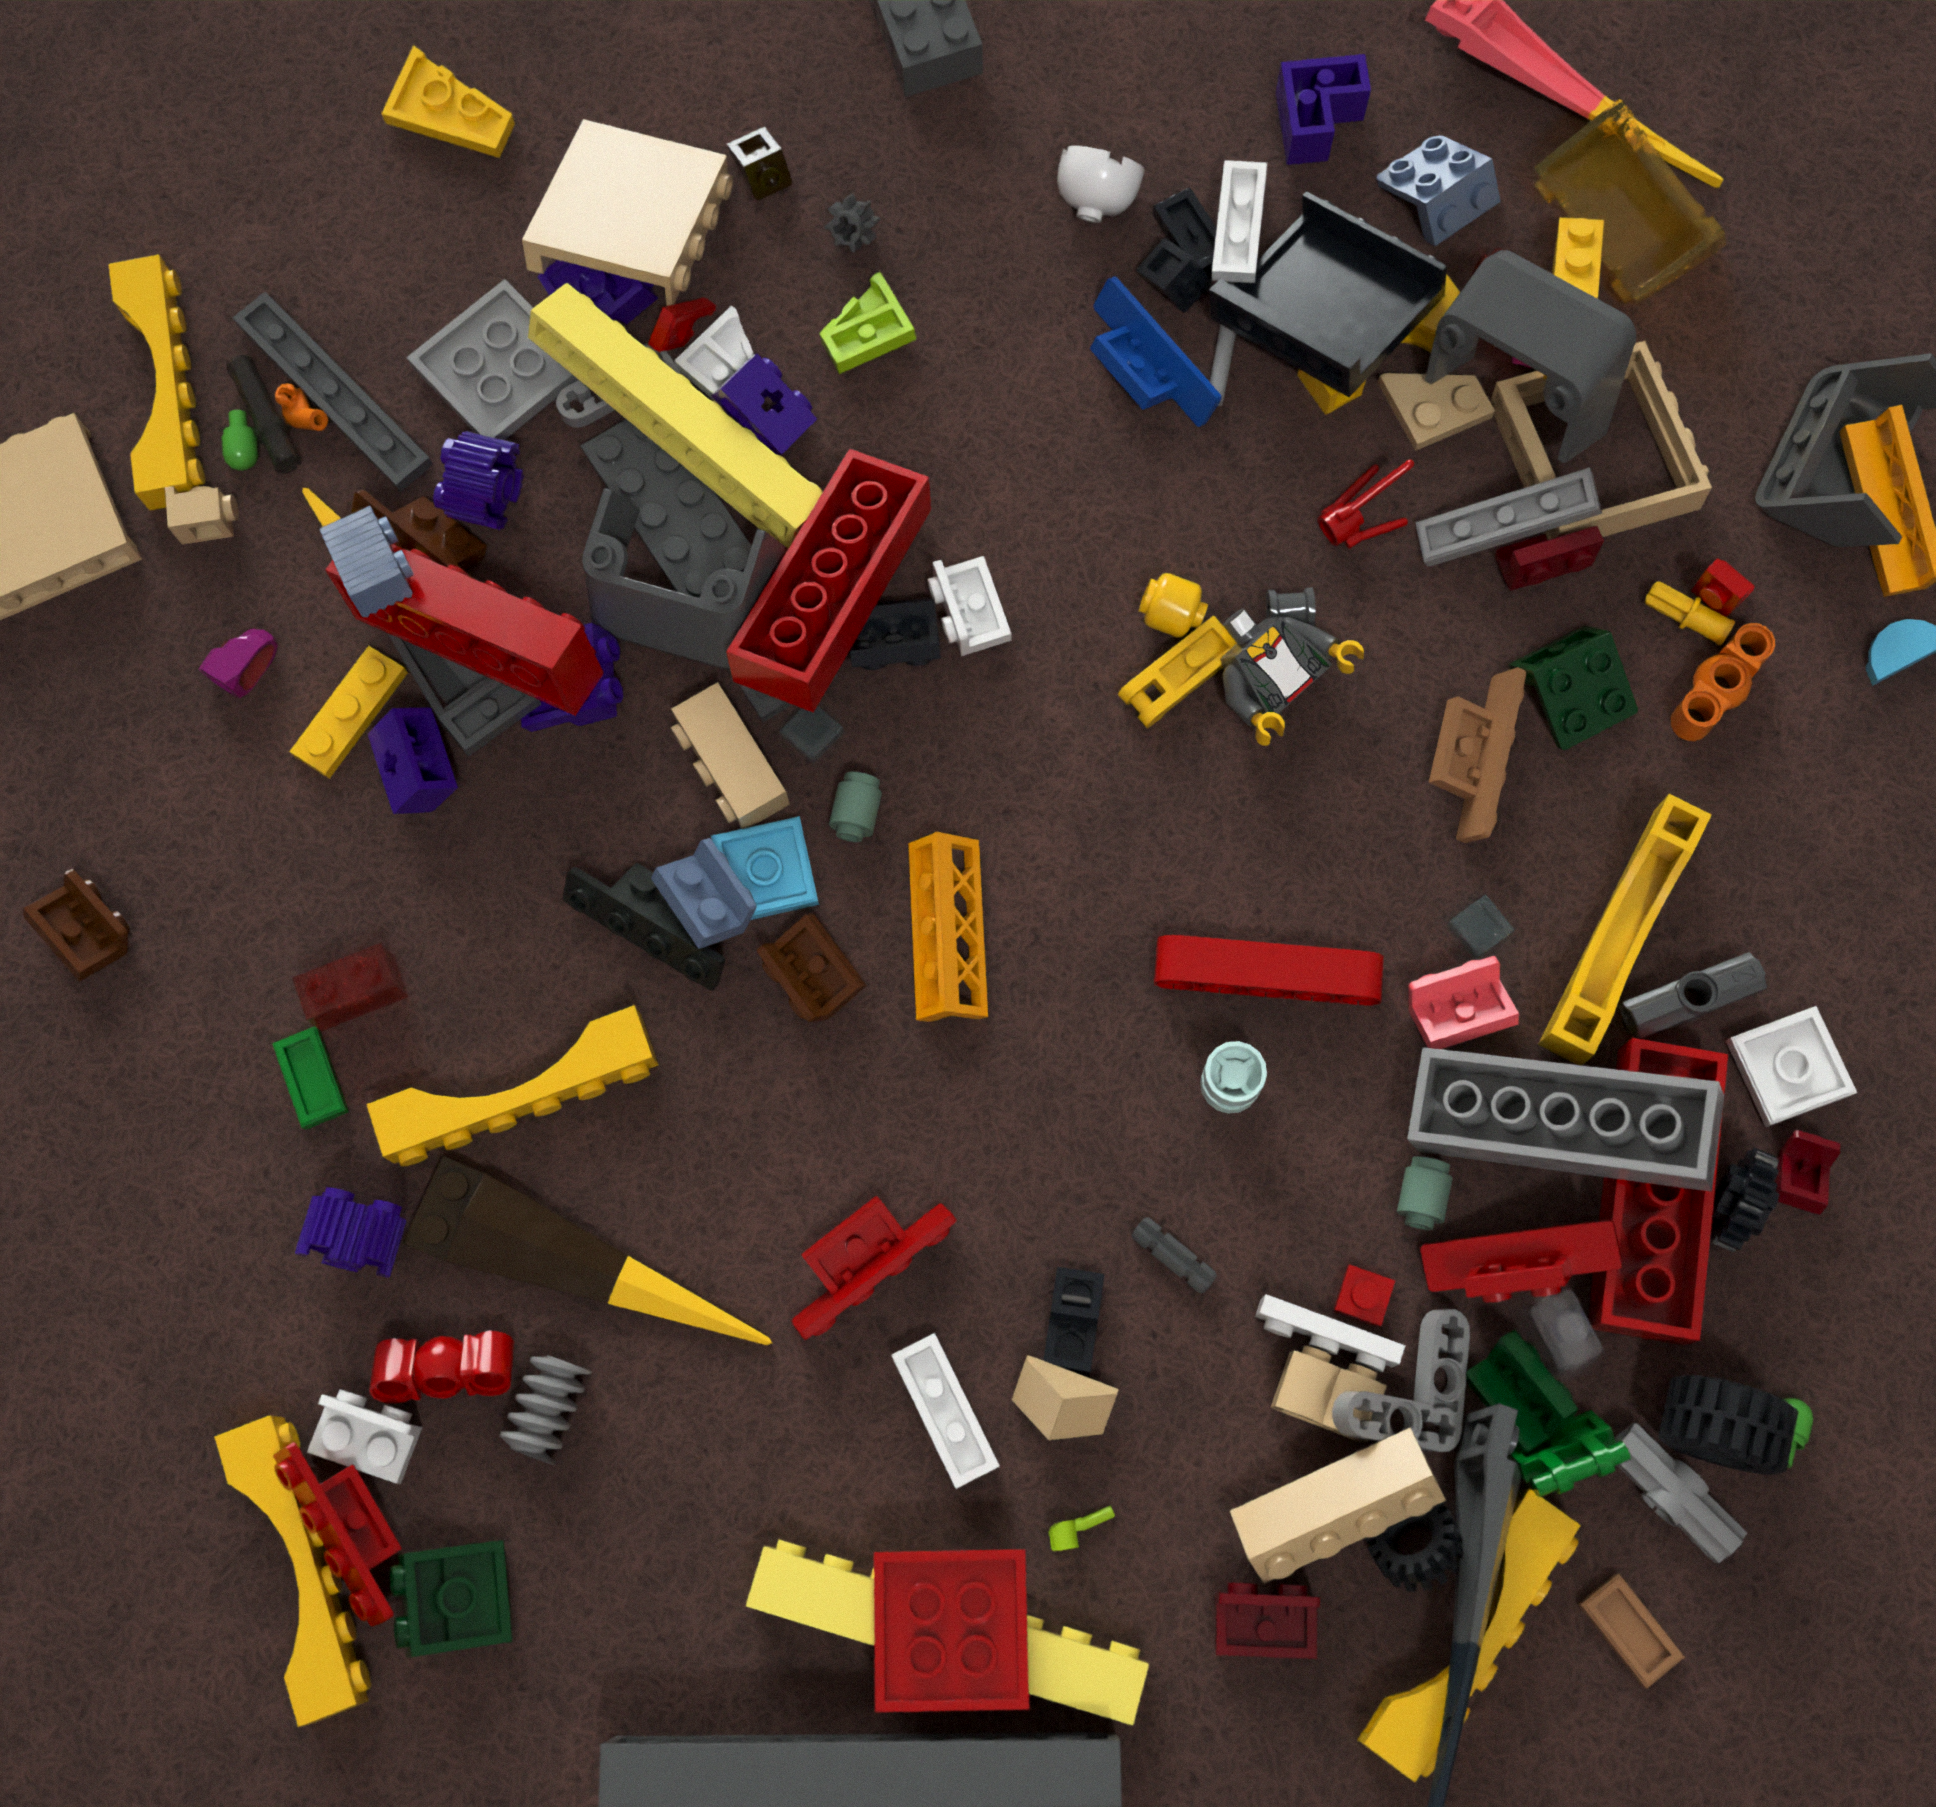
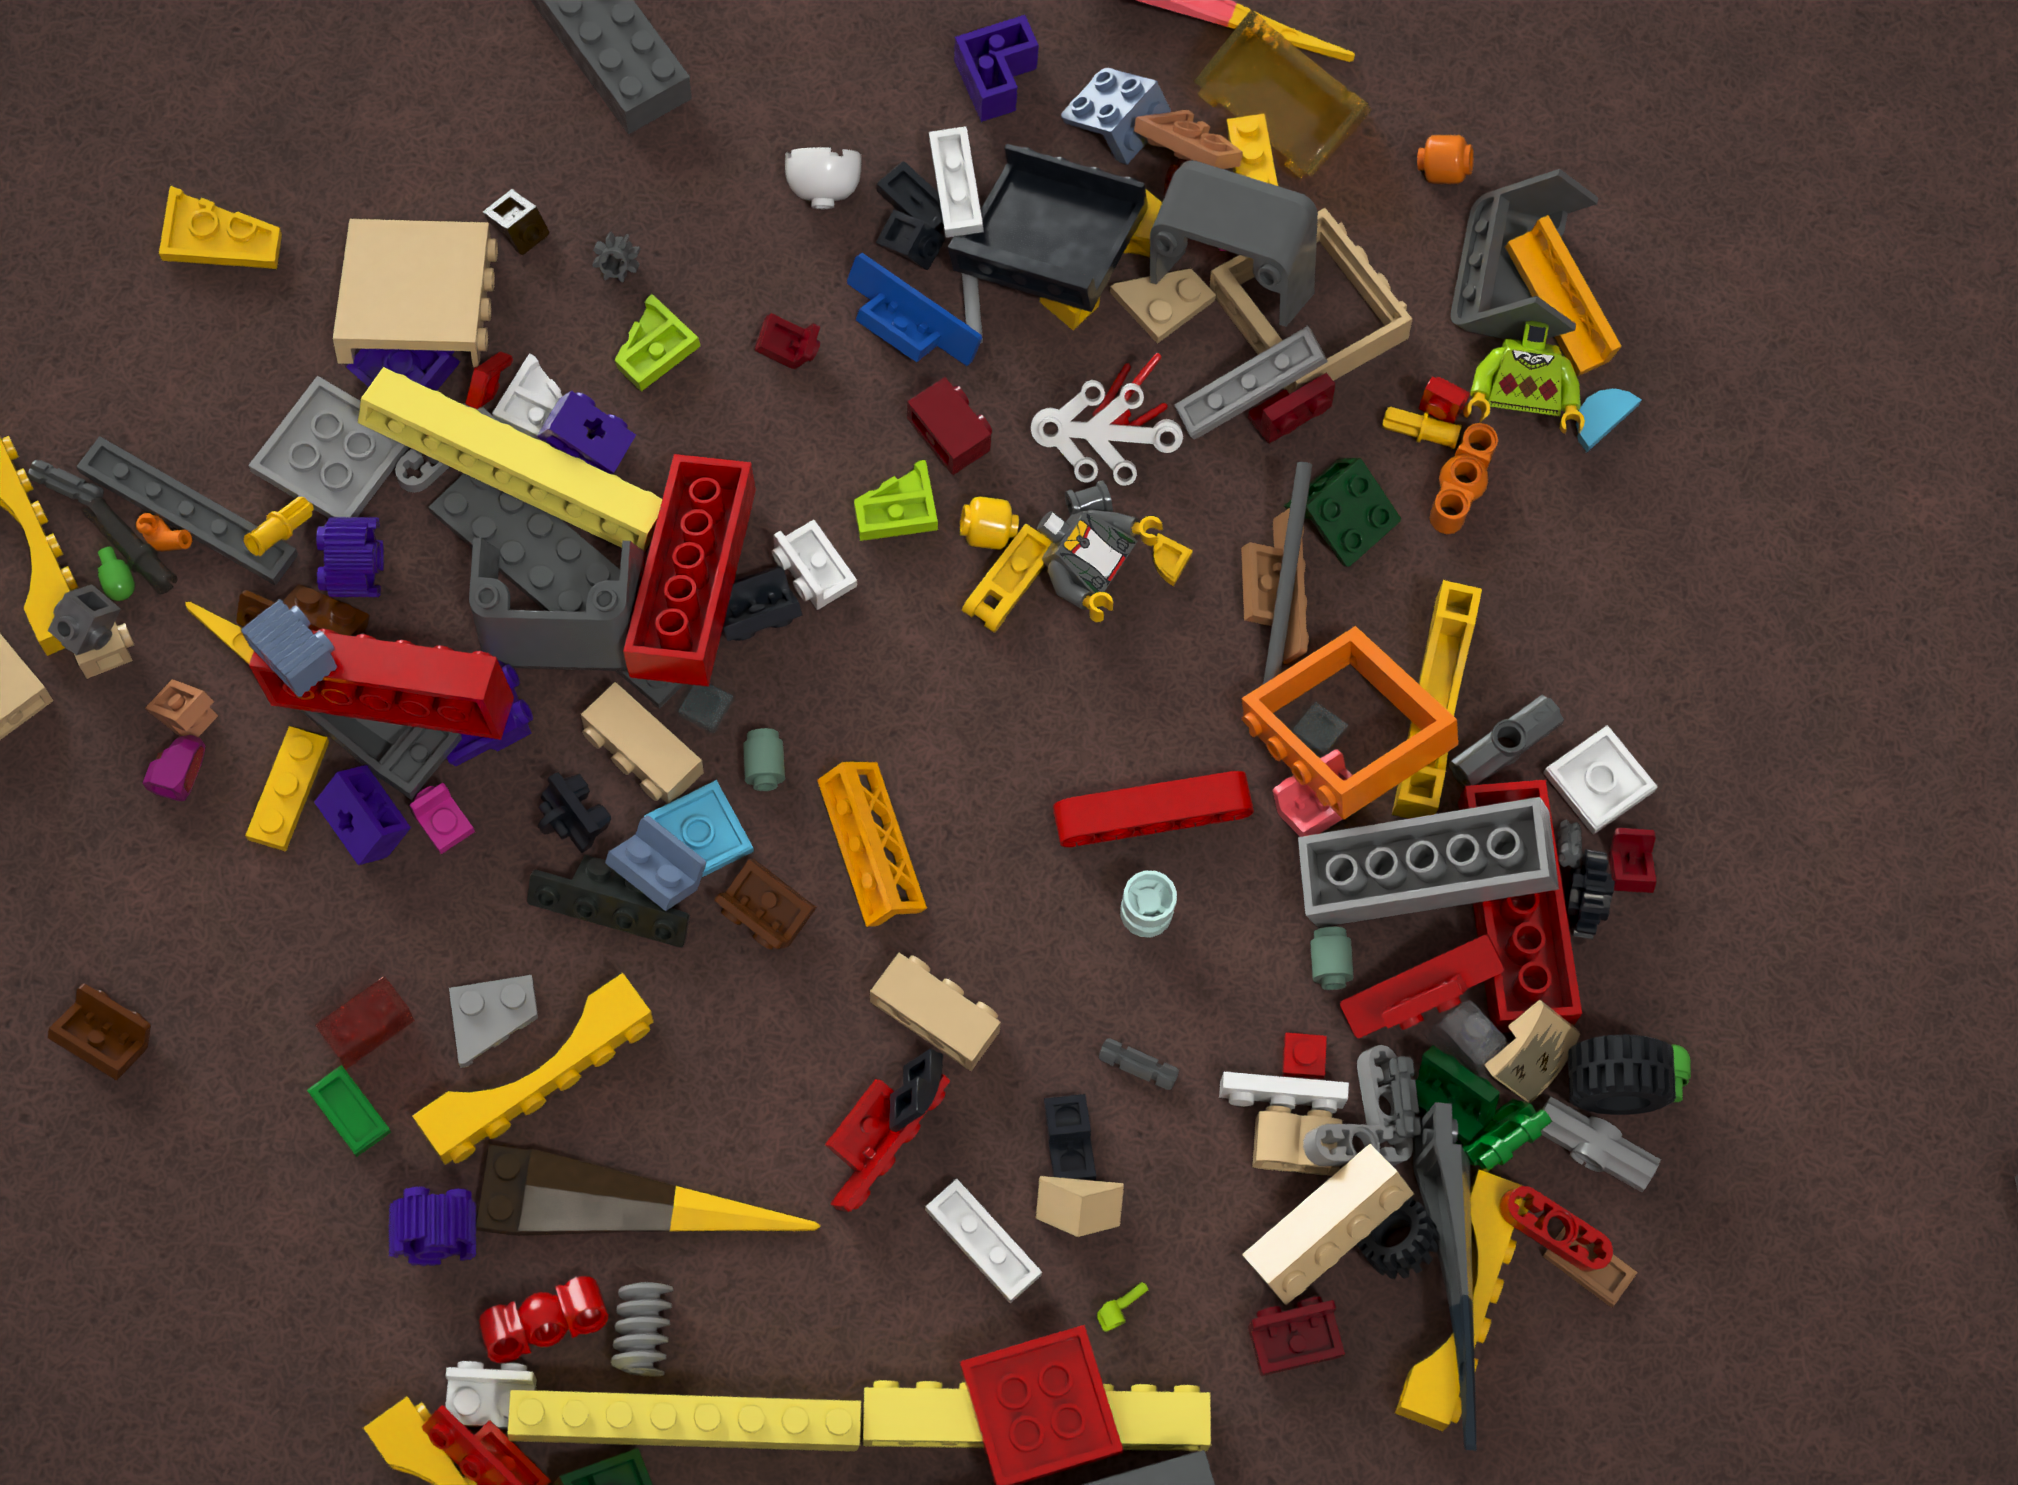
camera: 25 degrees left, 5 degrees down
(178, 480) = (84, 620): none -> flat silver brick
(217, 331) = (63, 482): none -> dark grey axle
(266, 602) = (183, 709): none -> nougat slope
(416, 428) = (278, 526): none -> yellow axle
(487, 1010) = (489, 1013): none -> light grey wing
(496, 783) = (440, 817): none -> dark pink bracket
(556, 1527) = (684, 1420): none -> light yellow brick
(626, 815) = (567, 815): none -> black hips
(923, 1216) = (918, 1091): none -> black slope
(965, 1135) = (936, 1010): none -> tan brick
(1009, 355) = (787, 342): none -> dark red bracket
(1079, 563) = (898, 506): none -> lime wing
(1160, 487) = (950, 425): none -> dark red brick
(1323, 532) = (1100, 430): none -> white plant
(1364, 692) = (1170, 558): none -> yellow tile
(1465, 1379) = (1404, 1097): none -> dark grey axle
(1489, 747) = (1288, 570): none -> dark grey piece
(1509, 229) = (1188, 139): none -> nougat wing
(1618, 958) = (1346, 797): none -> orange window
(1623, 1590) = (1536, 1203): none -> red beam
(1636, 1372) = (1537, 1052): none -> slope
(1736, 1135) = (1570, 844): none -> dark grey axle
(1797, 318) = (1446, 159): none -> orange head
(1828, 586) = (1527, 379): none -> lime torso

